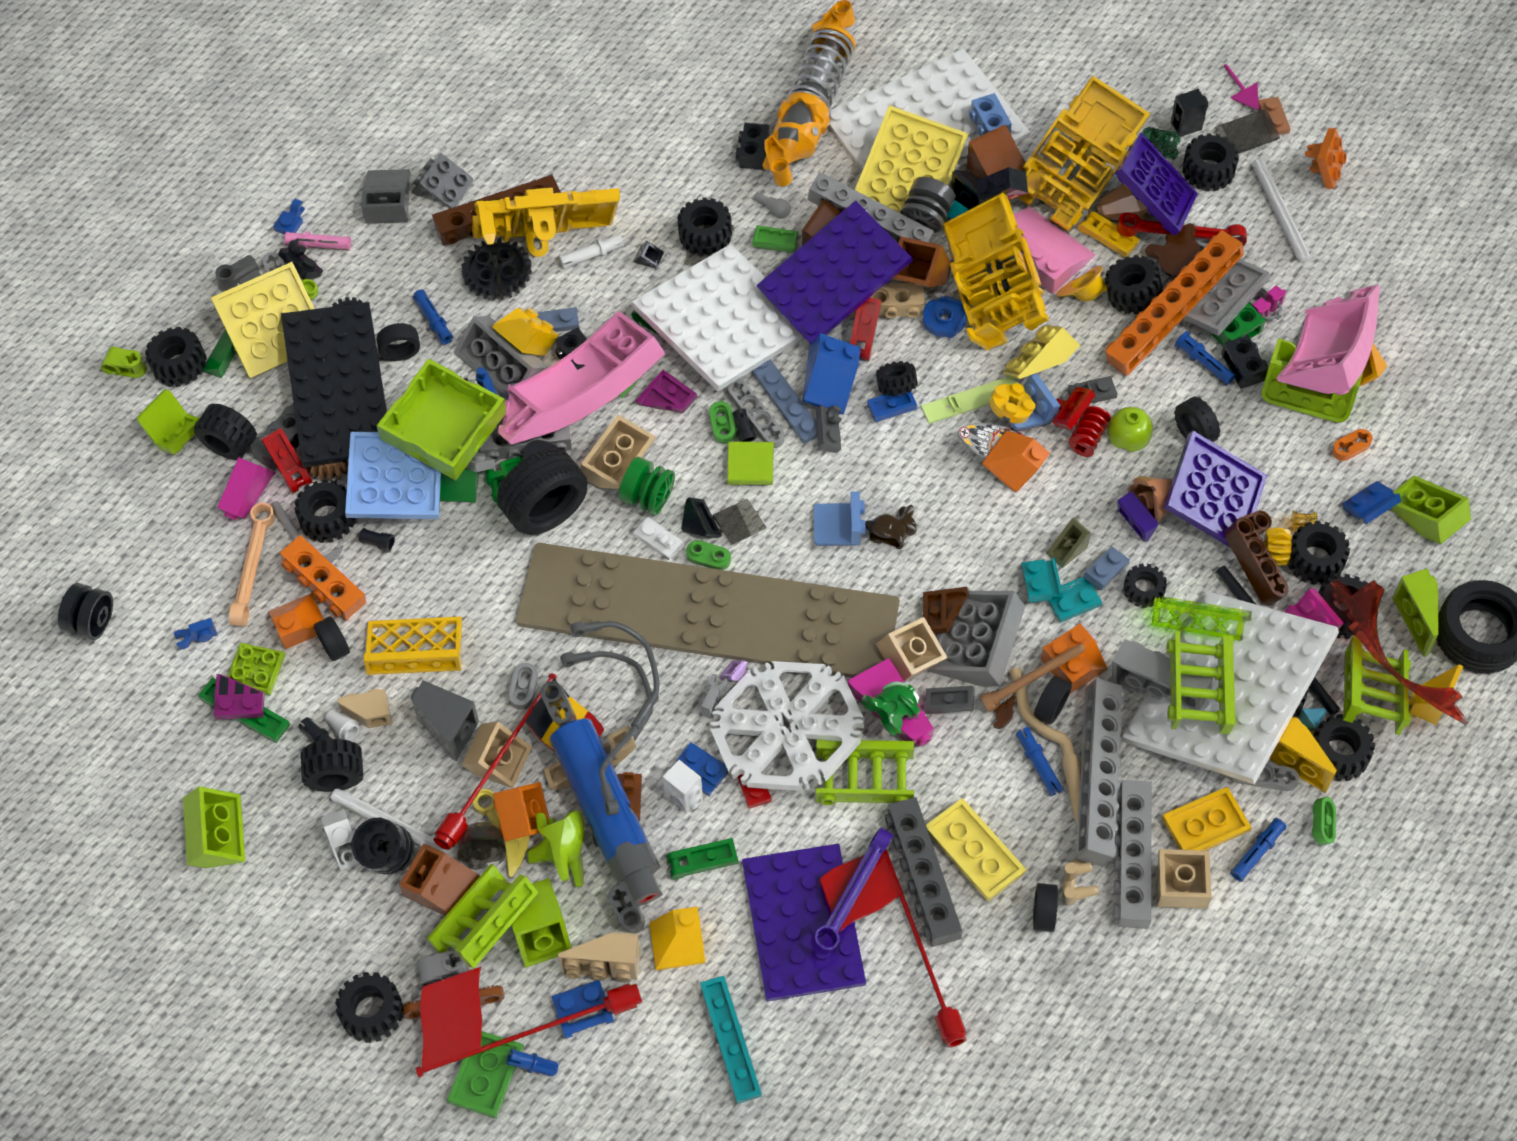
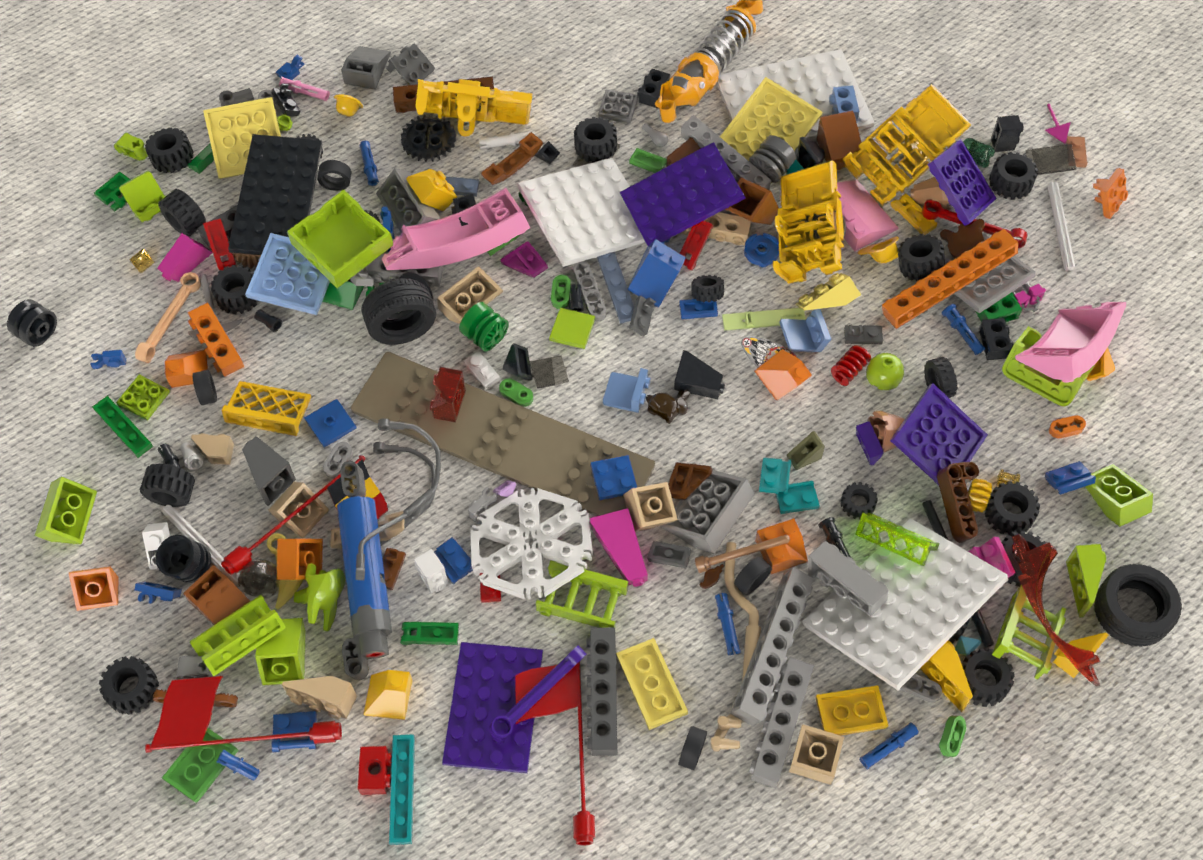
camera: 15 degrees right, 0 degrees up
(119, 422) = (110, 191): none -> green plate
(191, 503) = (141, 260): none -> clear yellow slope
(237, 700) = (117, 417): magenta wing -> none
(284, 908) = (94, 588): none -> orange slope
(373, 891) = (151, 589): none -> blue plate
(381, 249) = (347, 105): none -> yellow hat
(497, 644) = (330, 423): none -> blue plate
(613, 273) = (515, 161): none -> dark orange slope
(633, 572) = (449, 394): none -> clear red slope
(688, 1012) = (369, 758): none -> red brick
(715, 178) = (618, 106): none -> light grey tile
(857, 626) = (613, 477): none -> blue plate
(892, 704) = (618, 546): green helmet -> none
(918, 486) = (698, 377): none -> black slope
(1009, 181) = (839, 152): black brick -> none
(1021, 403) = (798, 322): yellow plate -> none
(1073, 408) = (842, 343): red plate -> none
(1106, 568) = (831, 479): sand blue plate -> none
(1131, 631) = (835, 536): none -> black pin
(1223, 673) = (896, 588): lime fence -> none

